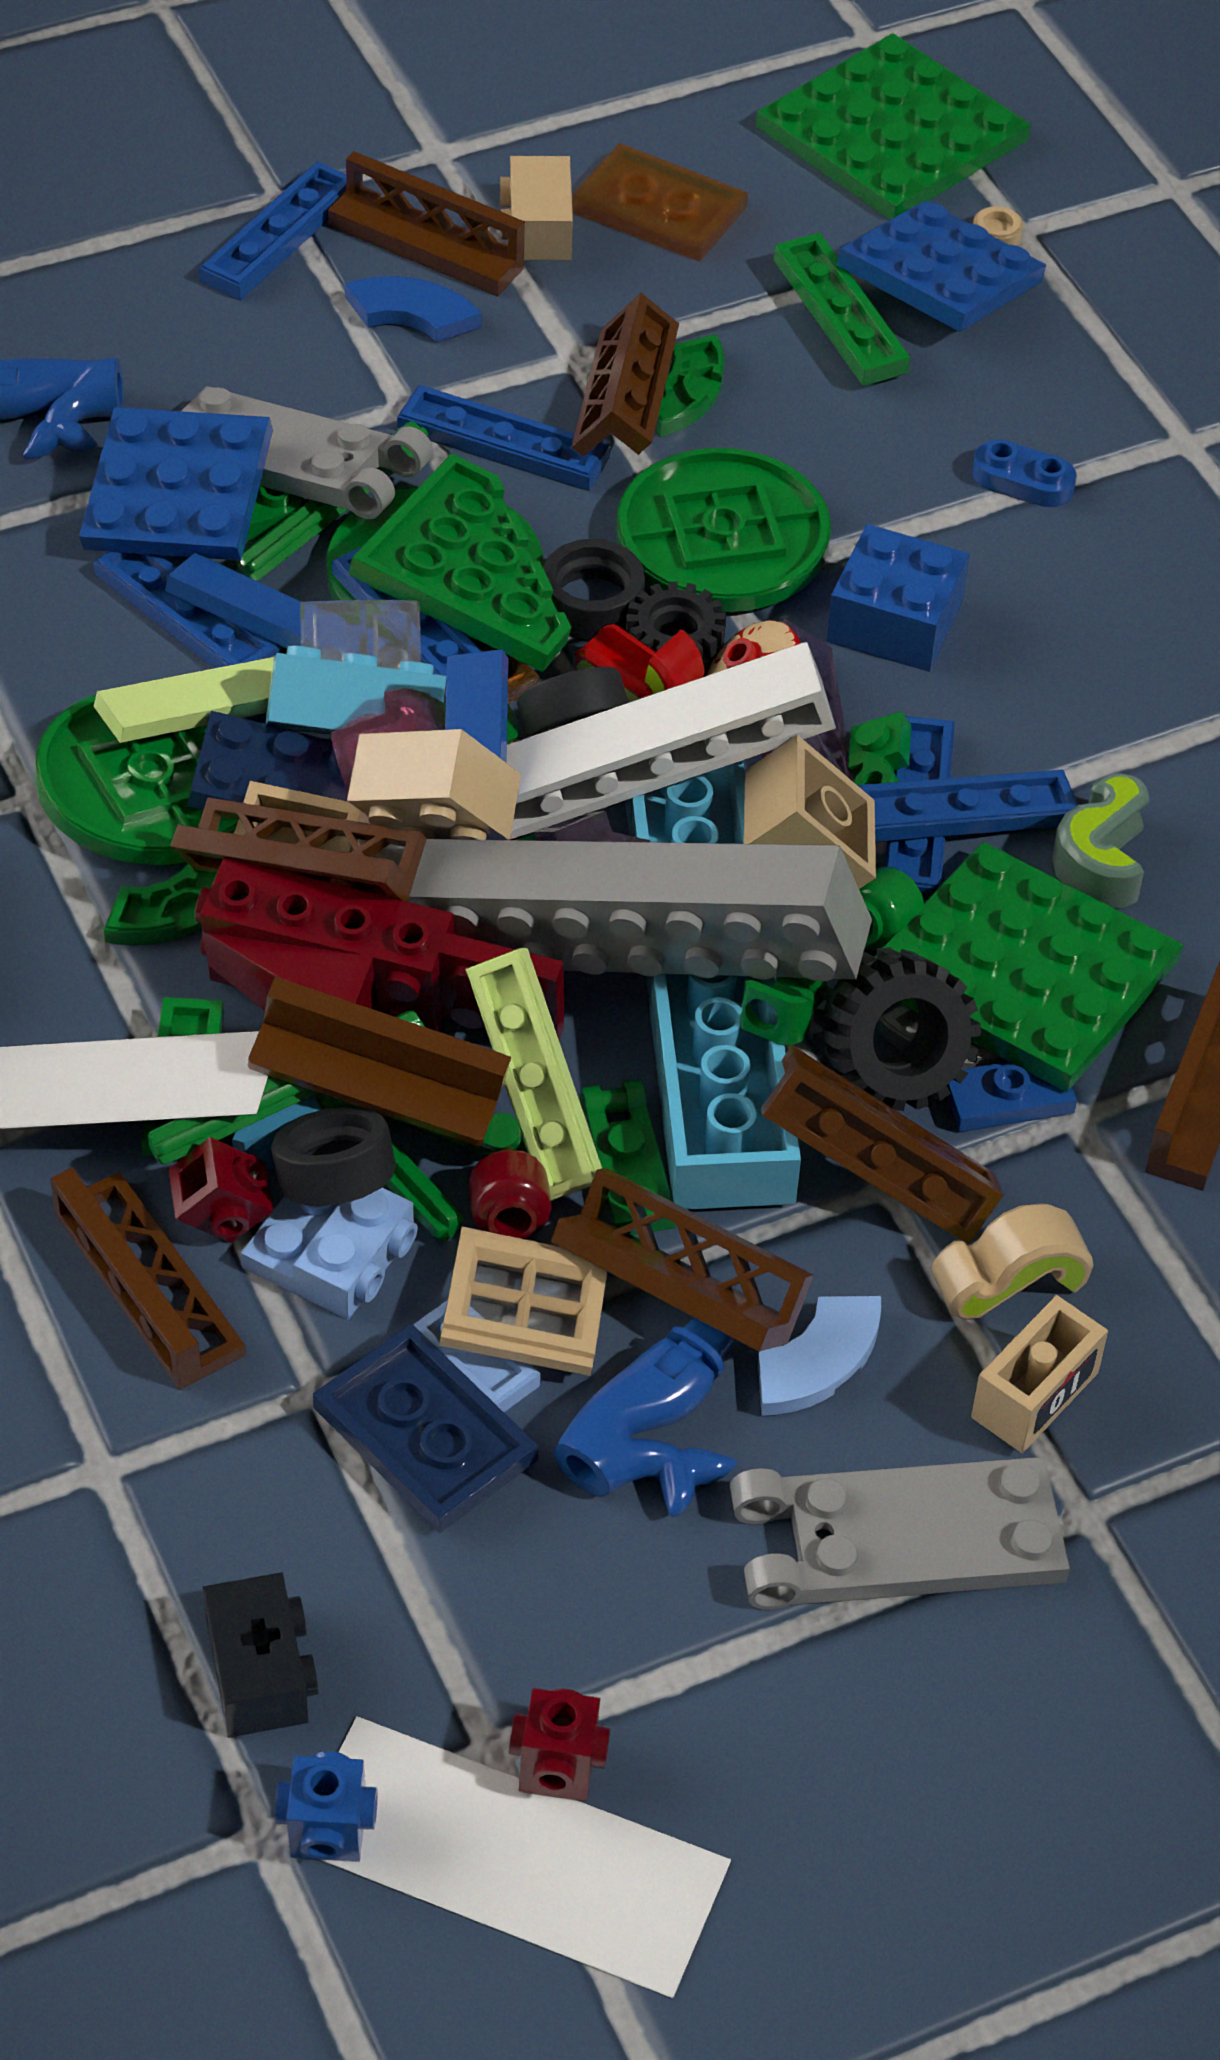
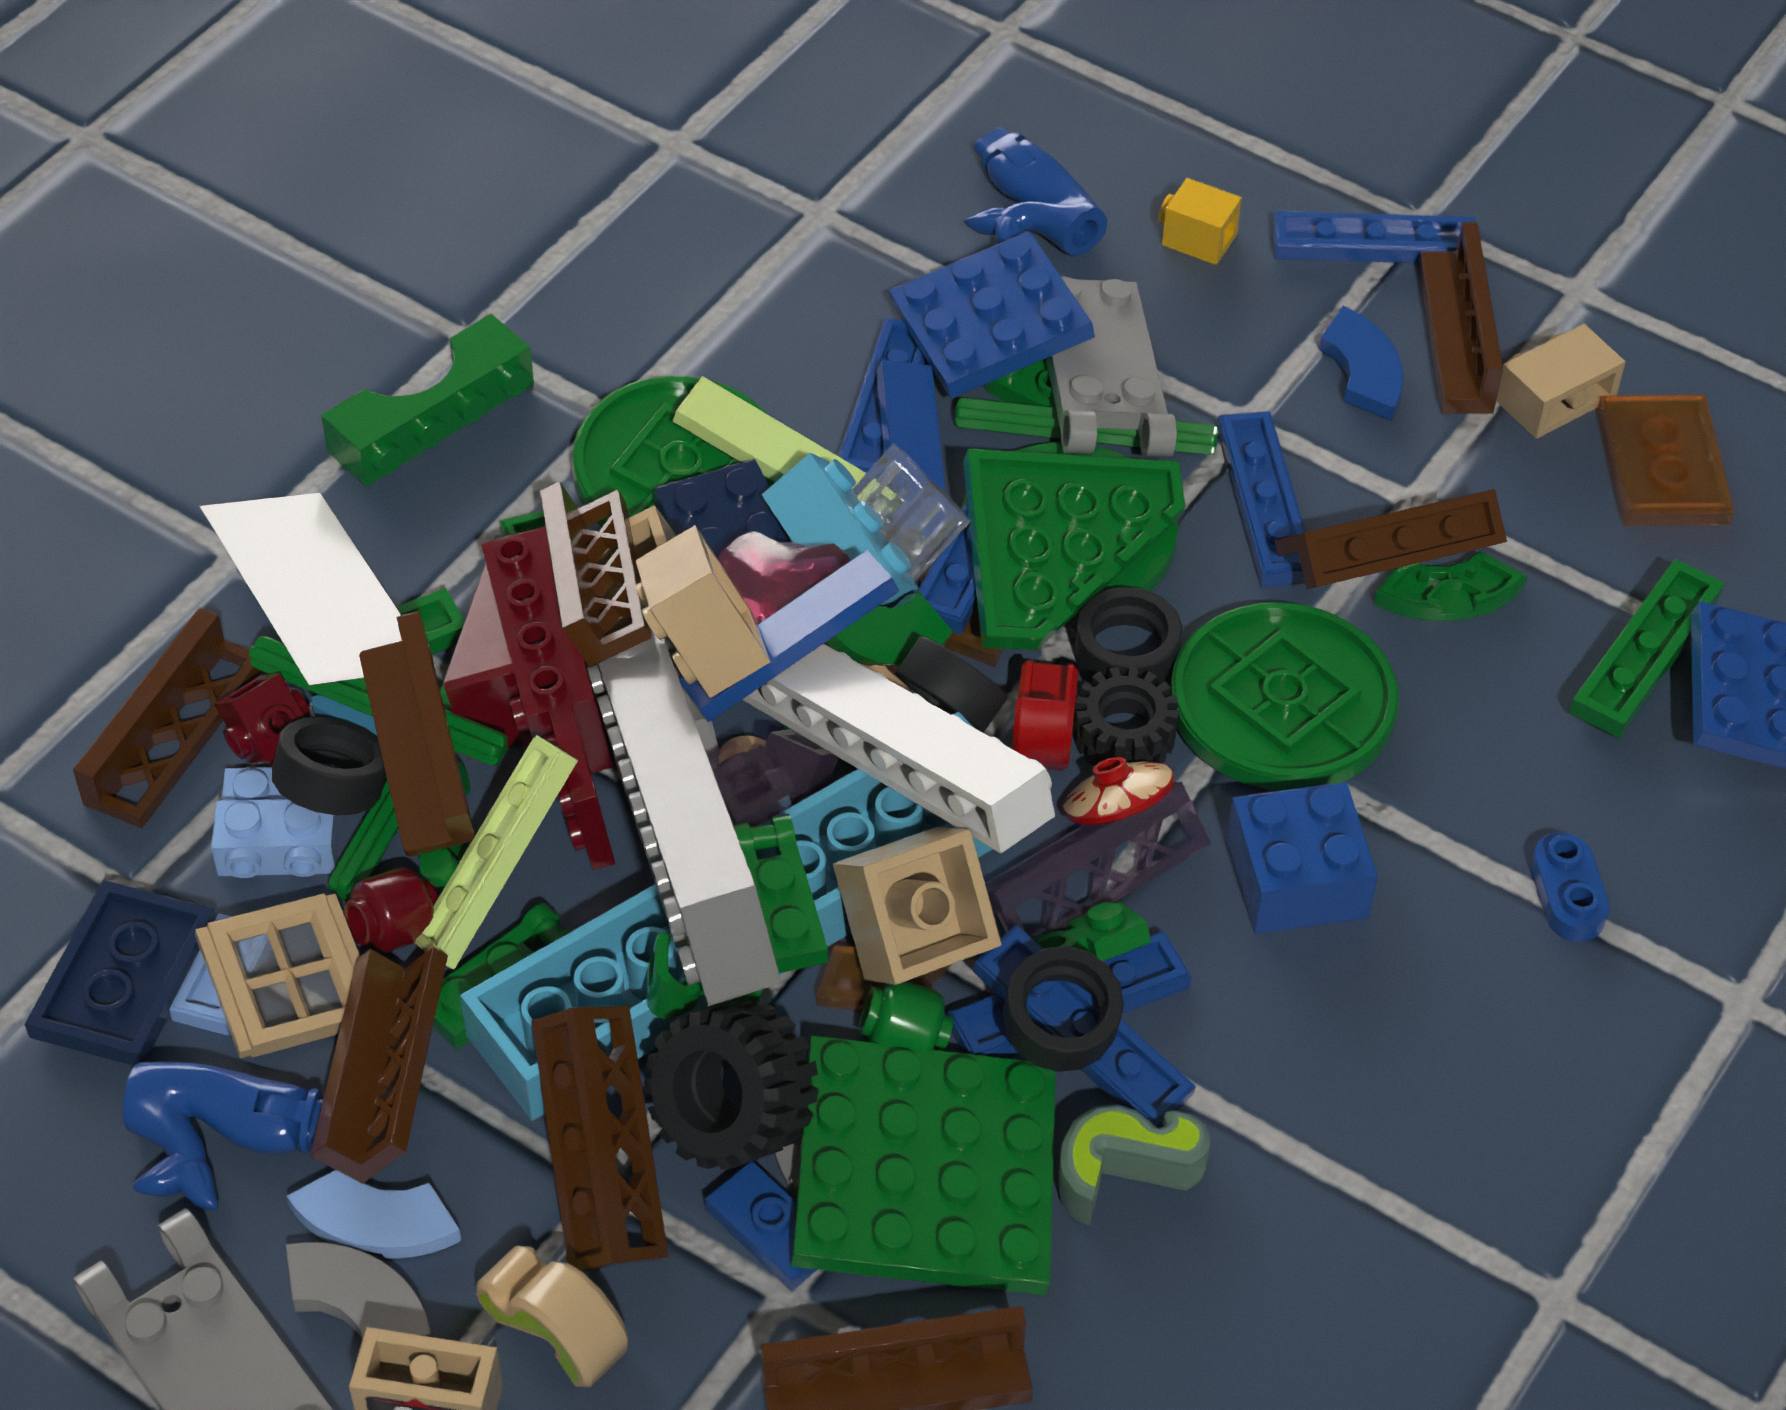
camera: 60 degrees right, 0 degrees up
(173, 313) = (1200, 220): none -> yellow brick
(892, 1396) = (353, 1289): none -> light grey tile
(951, 824) = (1076, 968): none -> black tyre

